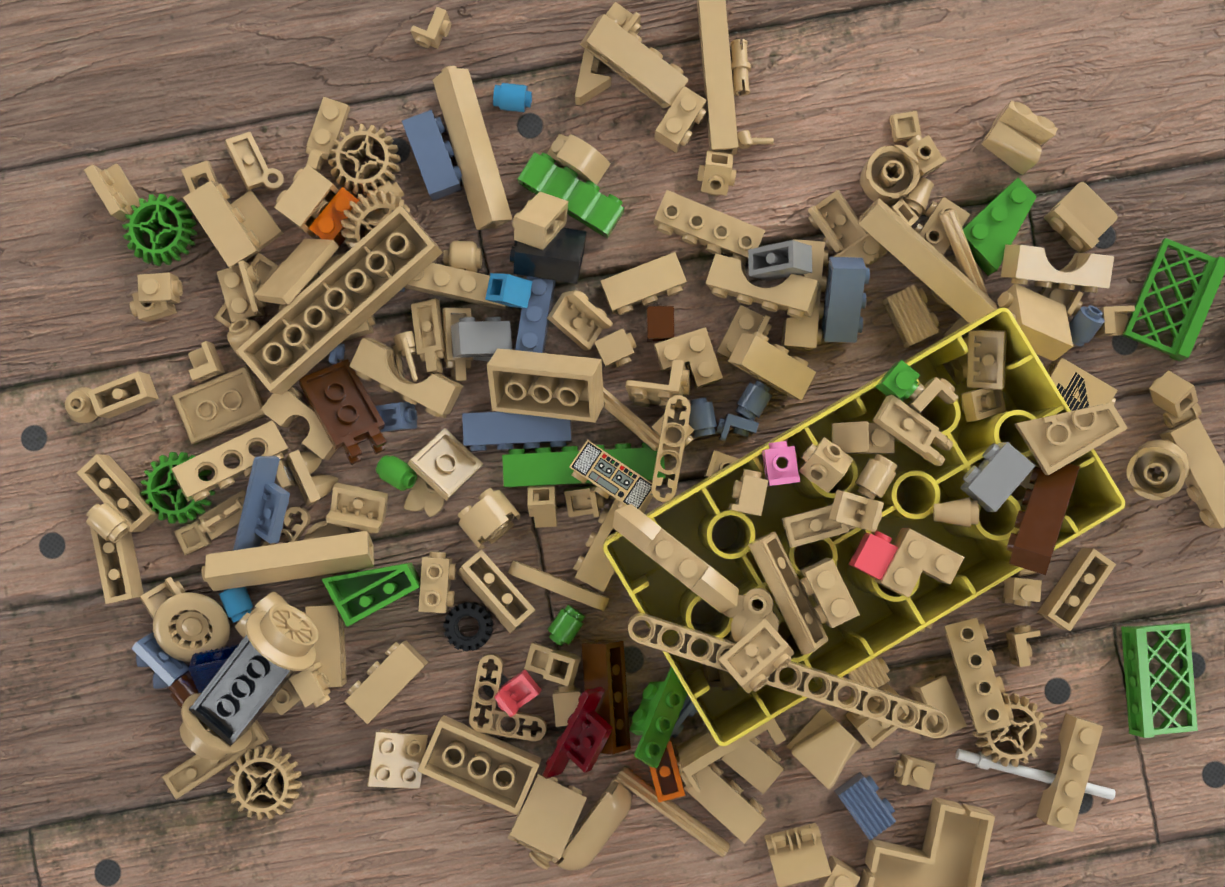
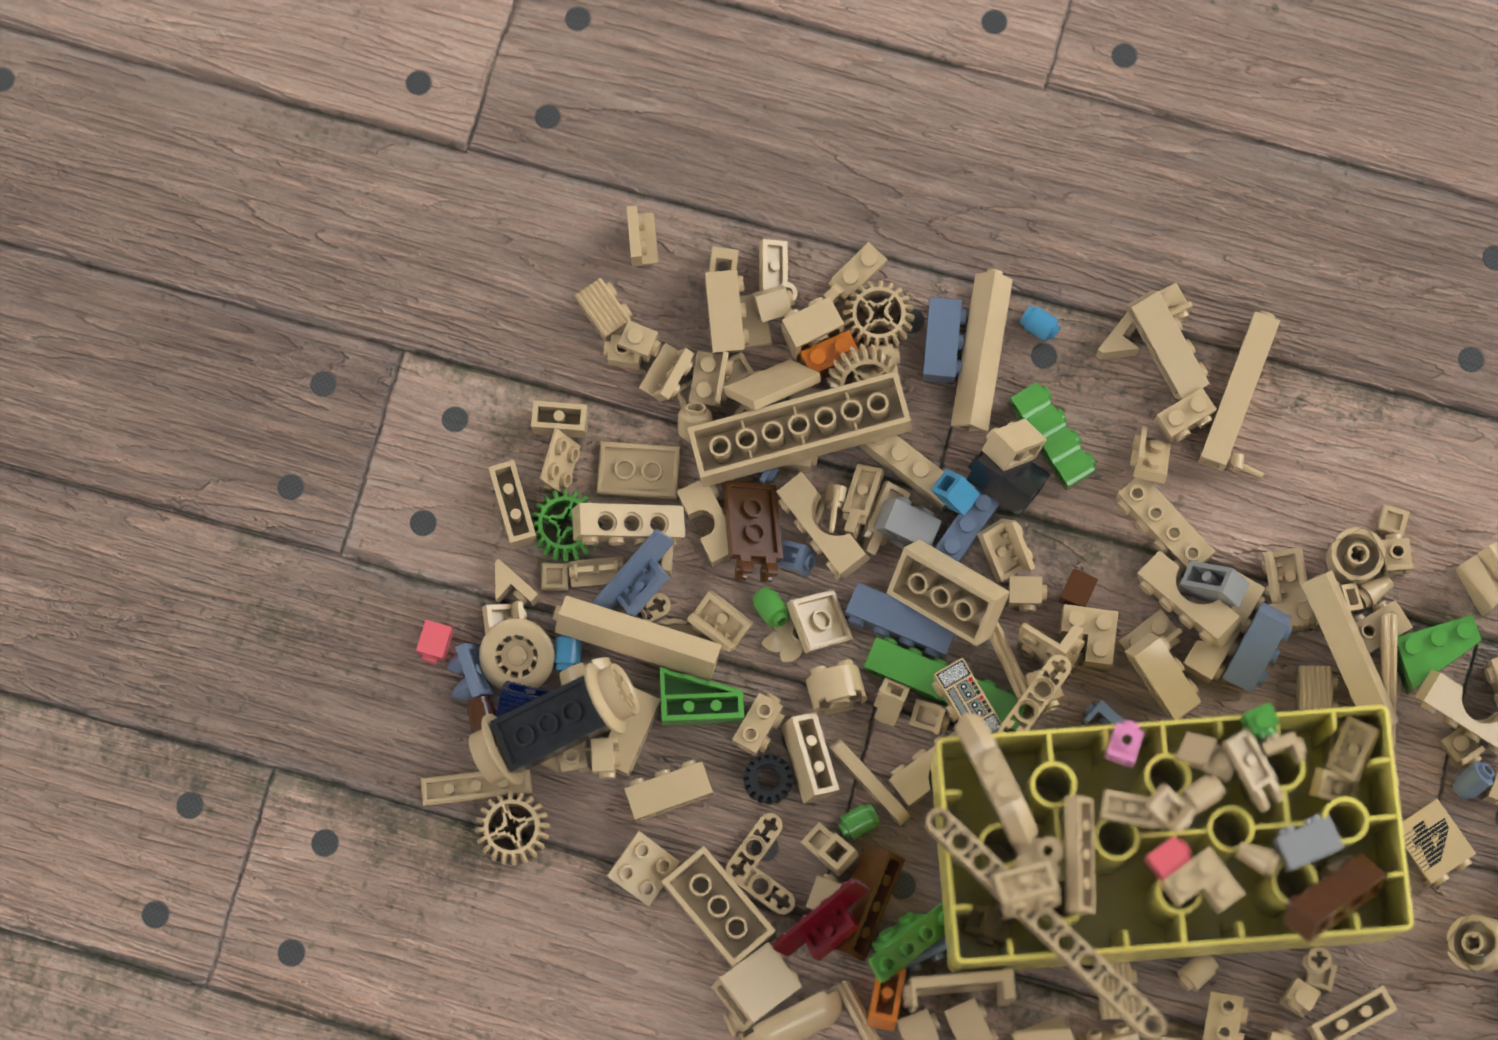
camera: 25 degrees right, 10 degrees down
(80, 411) = (518, 417): tan cone -> none
(107, 522) = (497, 523): tan brick -> none
(112, 273) = (603, 309): none -> tan brick
(112, 650) = (434, 642): none -> coral brick
(117, 568) = (480, 562): tan brick -> none
(141, 434) = (559, 462): none -> tan hinge
(149, 566) = (507, 581): none -> tan slope
(159, 208) = (680, 301): bright green gear -> none
(197, 304) = (666, 371): none -> tan bracket
(205, 363) = (644, 426): tan panel -> none
(262, 194) = (773, 303): none -> tan brick
(311, 487) = (684, 582): tan tile -> none
(438, 27) = (1003, 230): tan bracket -> none
(463, 256) = (927, 442): tan head -> none
(517, 693) = (783, 861): coral bracket -> none
(579, 157) = (1075, 405): tan brick -> none
(644, 284) = (1080, 547): tan brick -> none
(667, 173) = (1149, 458): none -> tan bracket
(702, 417) = (1076, 693): sand blue brick -> none
(717, 173) = (1195, 479): tan brick -> none
(740, 67) = (1263, 395): tan pin -> none
(749, 493) = (1086, 754): tan brick -> none
(753, 400) = (1131, 701): sand blue brick -> none
(825, 464) = (1163, 760): tan brick -> none
(829, 593) = (1115, 871): tan brick -> none
(1040, 319) = (1424, 753): tan brick -> none
(1069, 435) = (1388, 840): tan wing -> none

